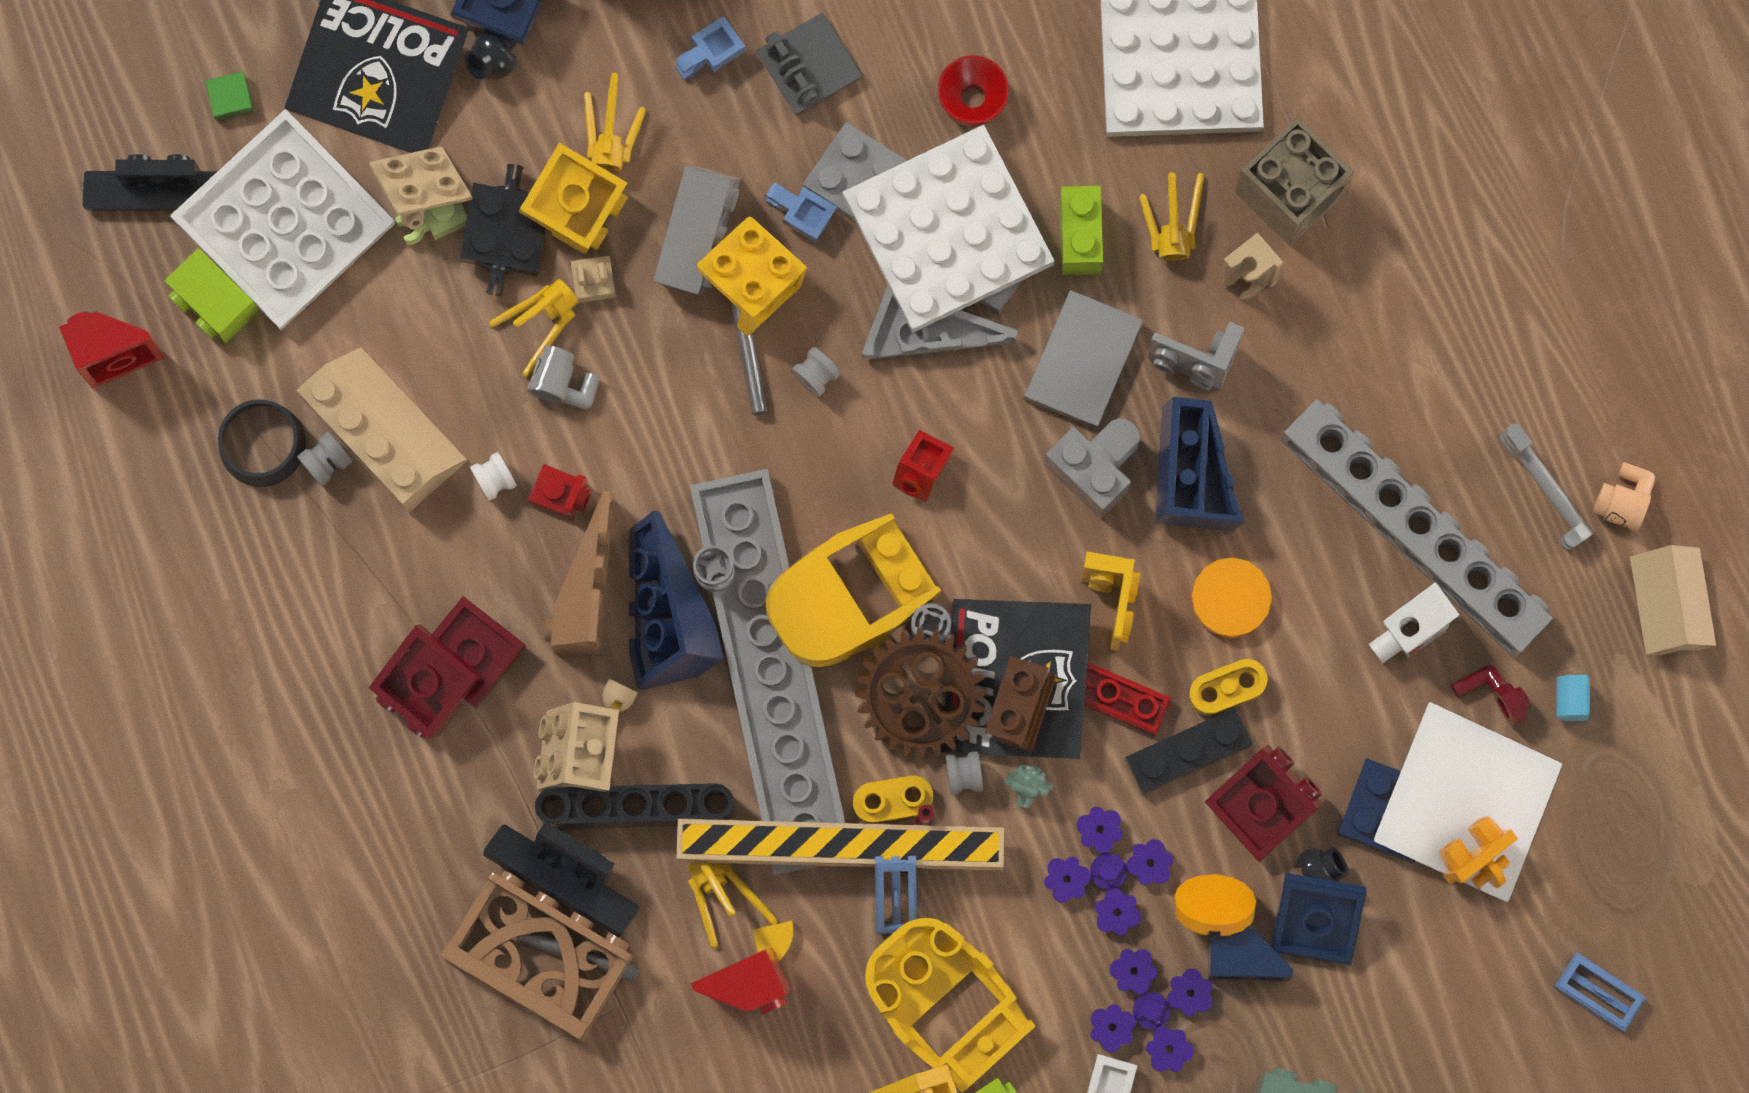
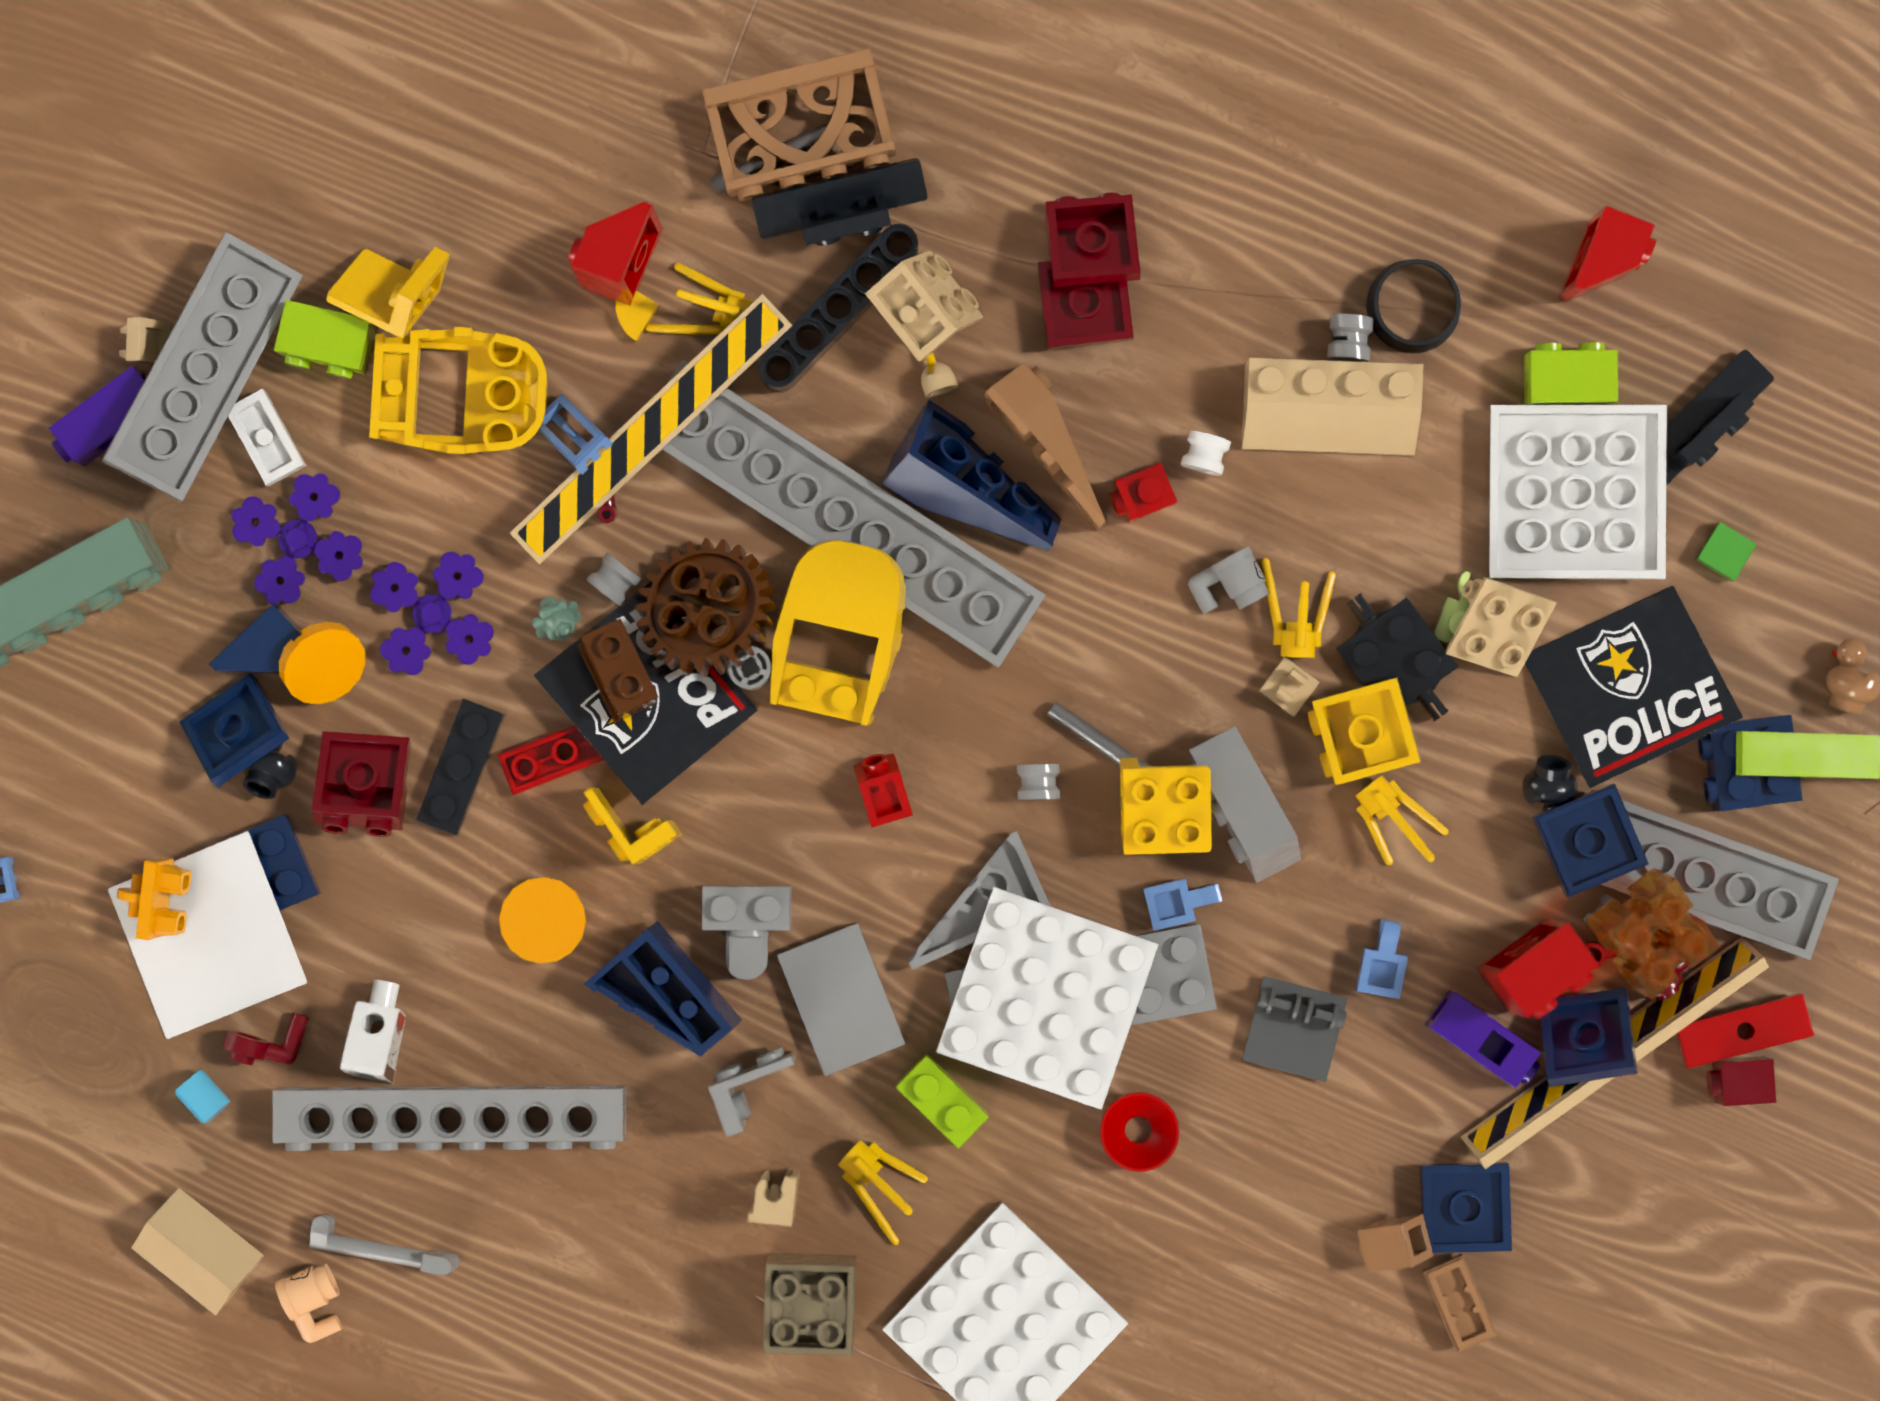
camera: 130 degrees right, 10 degrees up
(710, 562) = (956, 538): light grey wheel -> none
(893, 801) = (652, 509): yellow plate -> none
(1227, 688) = (477, 845): yellow plate -> none

